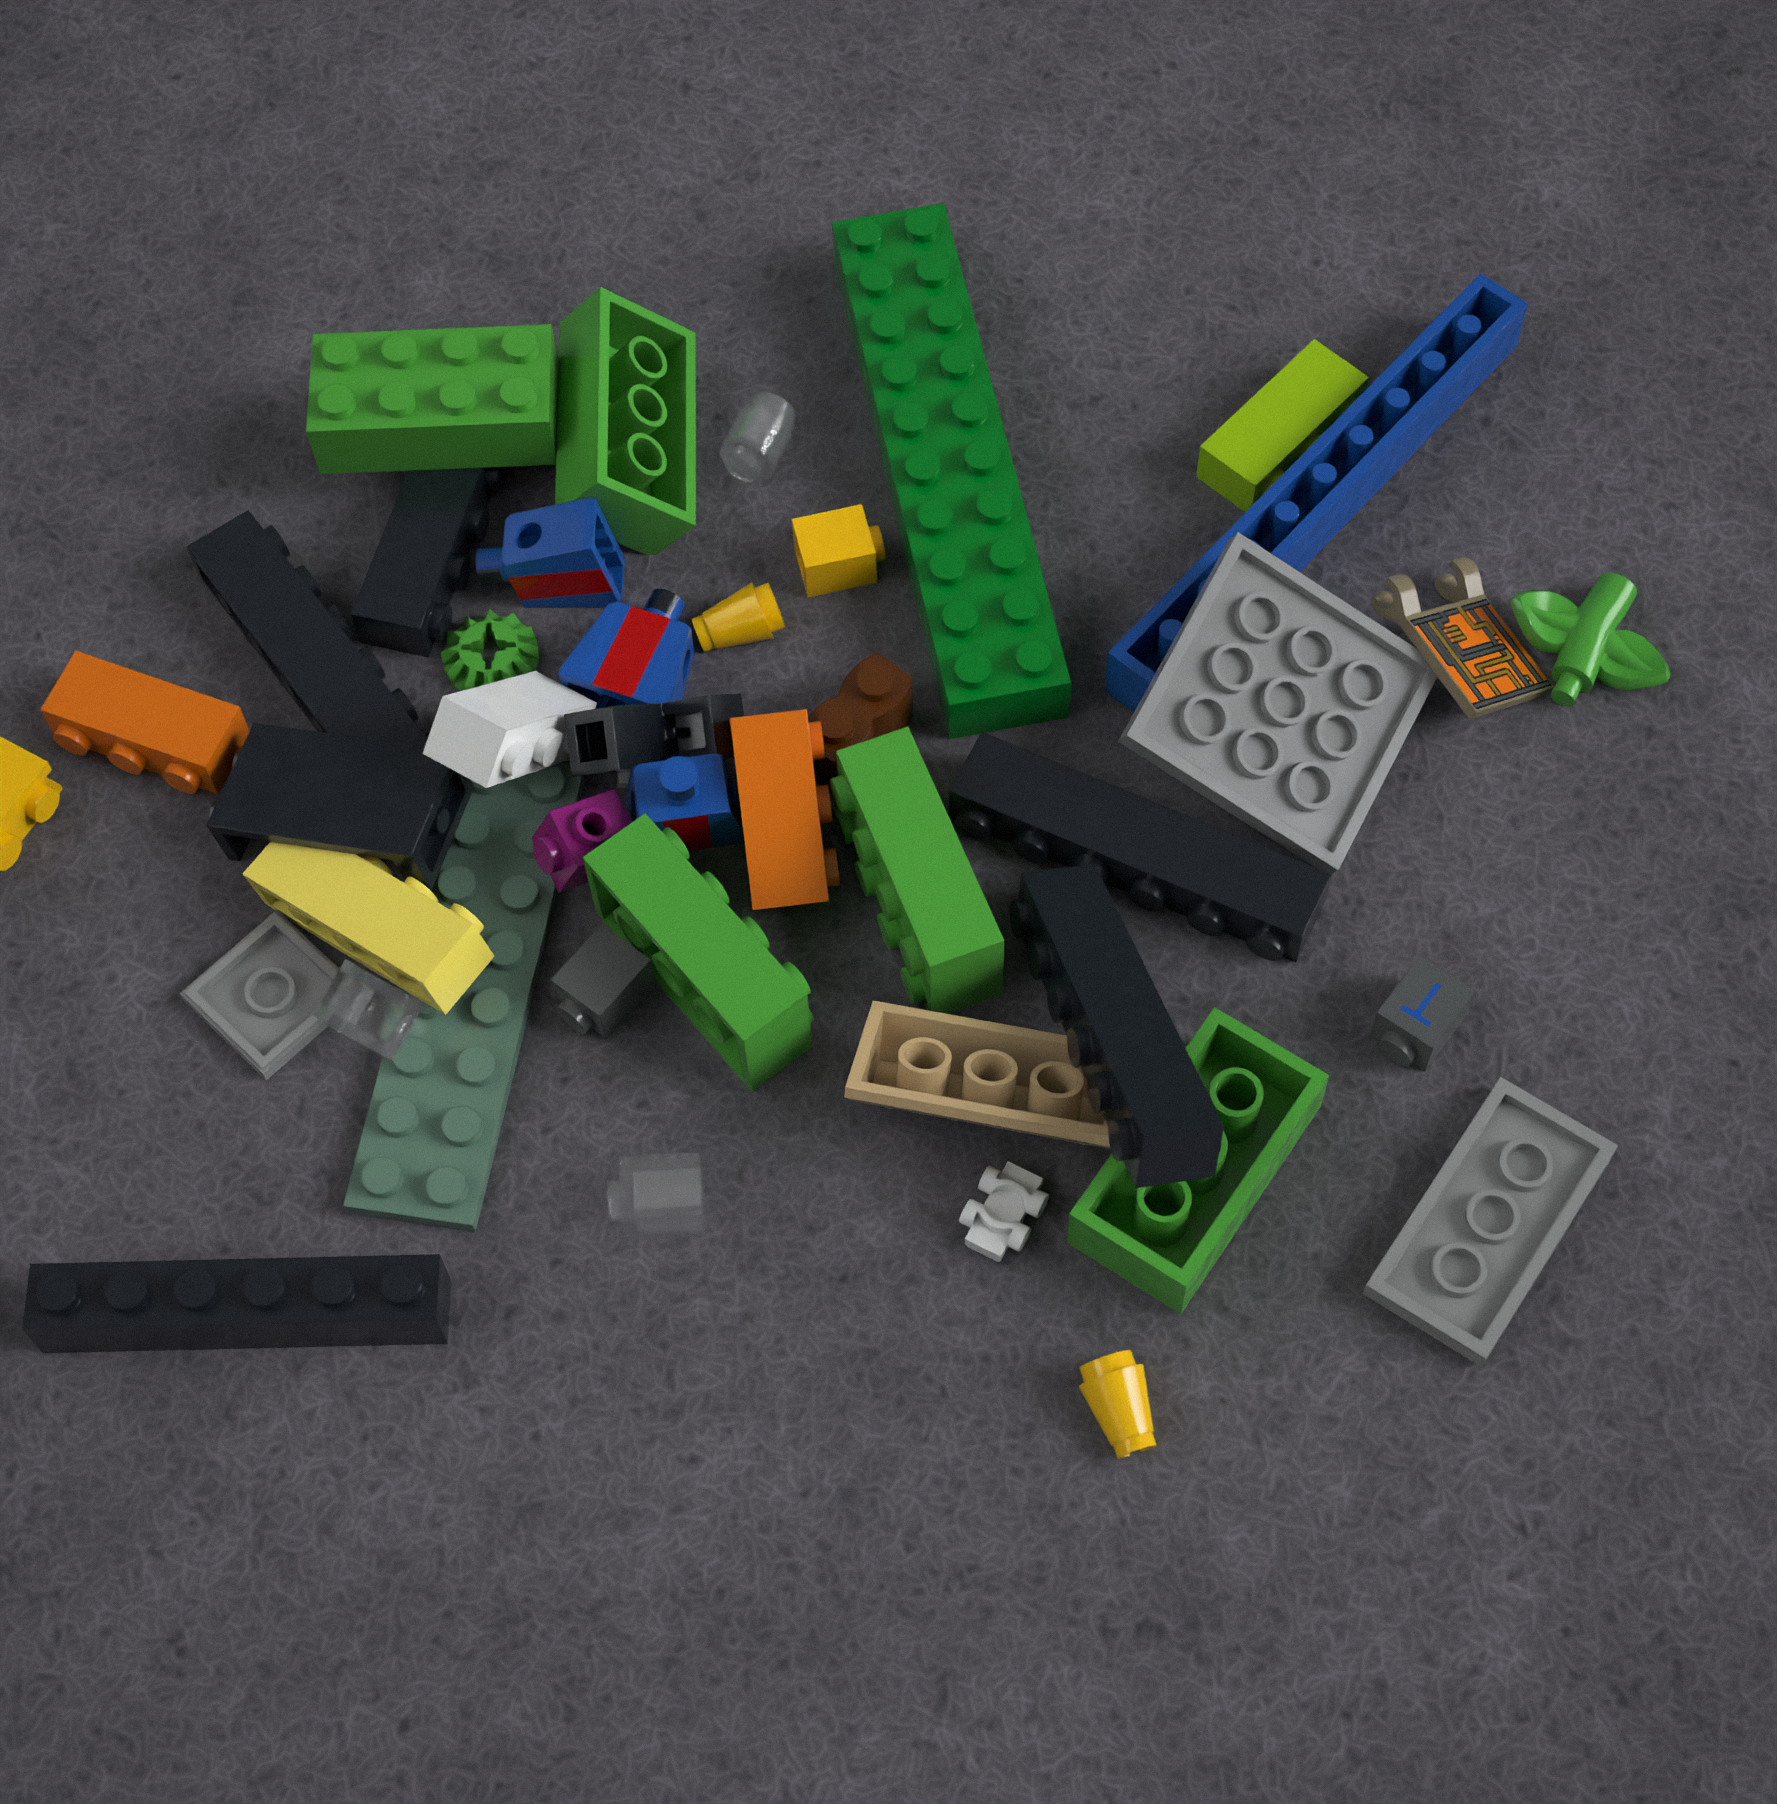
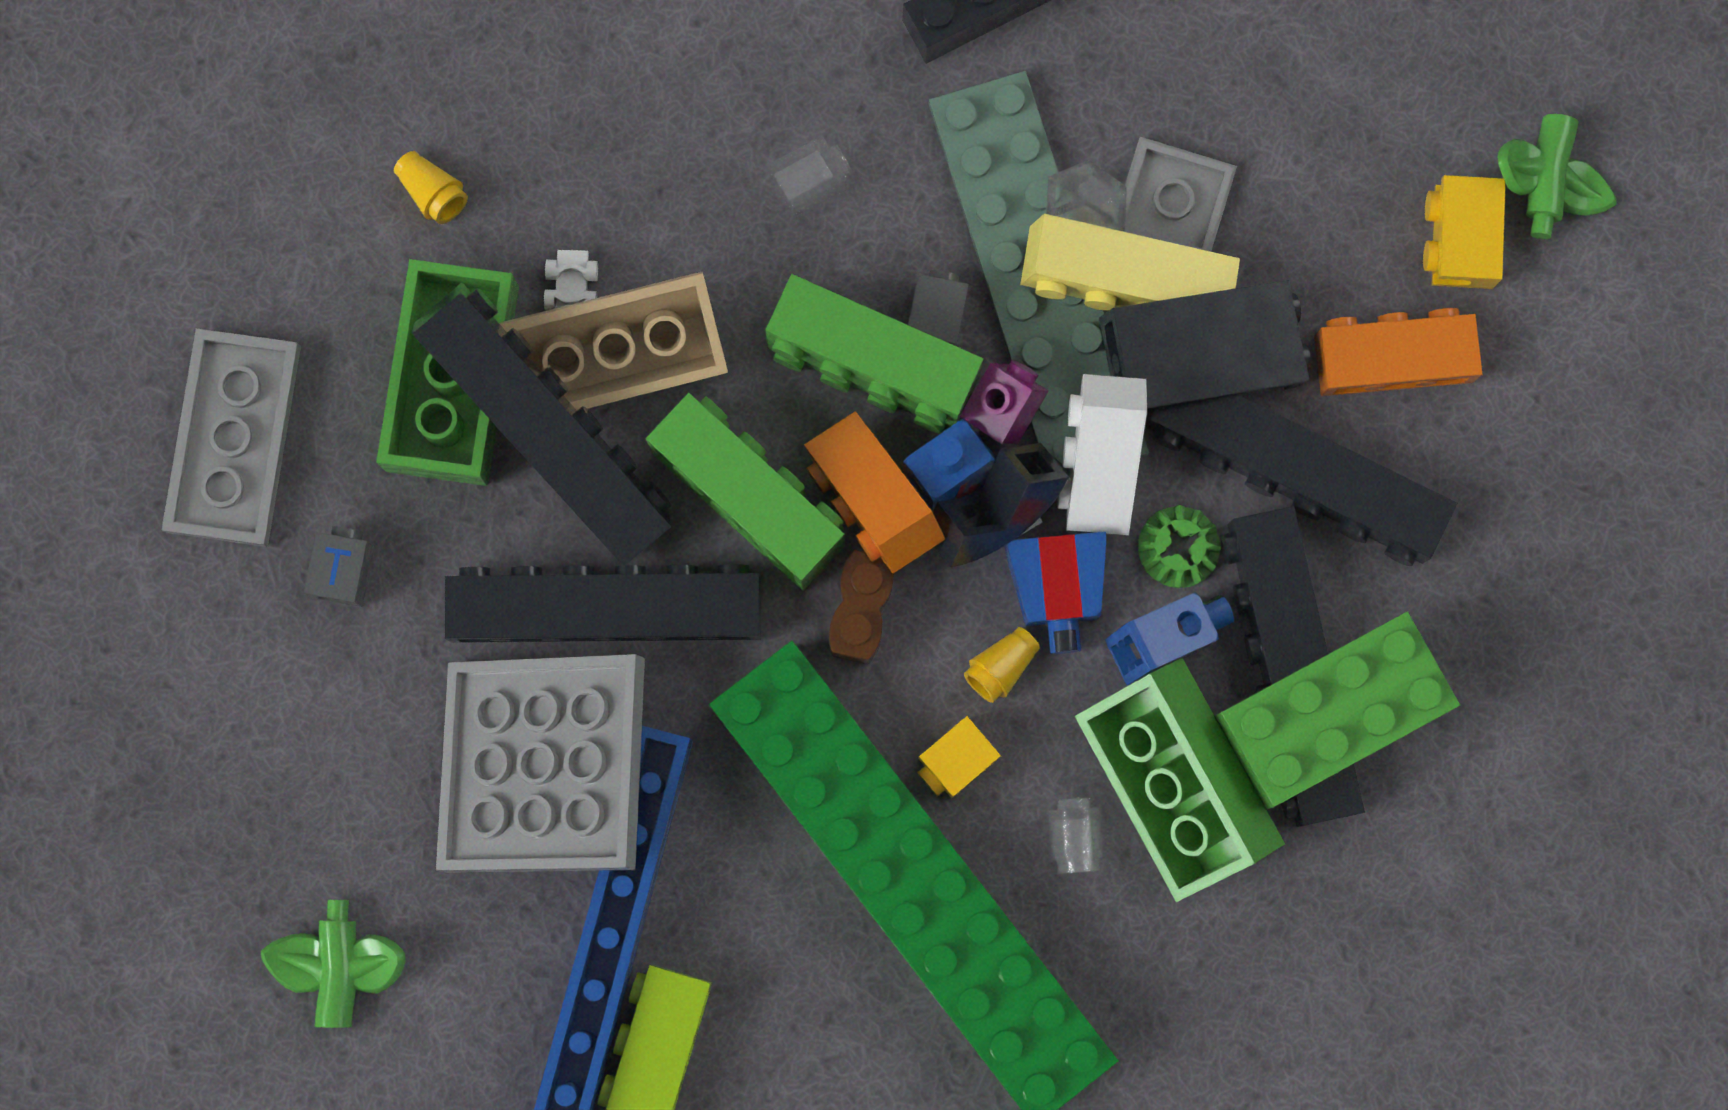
camera: 150 degrees right, 20 degrees up
(1465, 641) = (422, 903): flag -> none

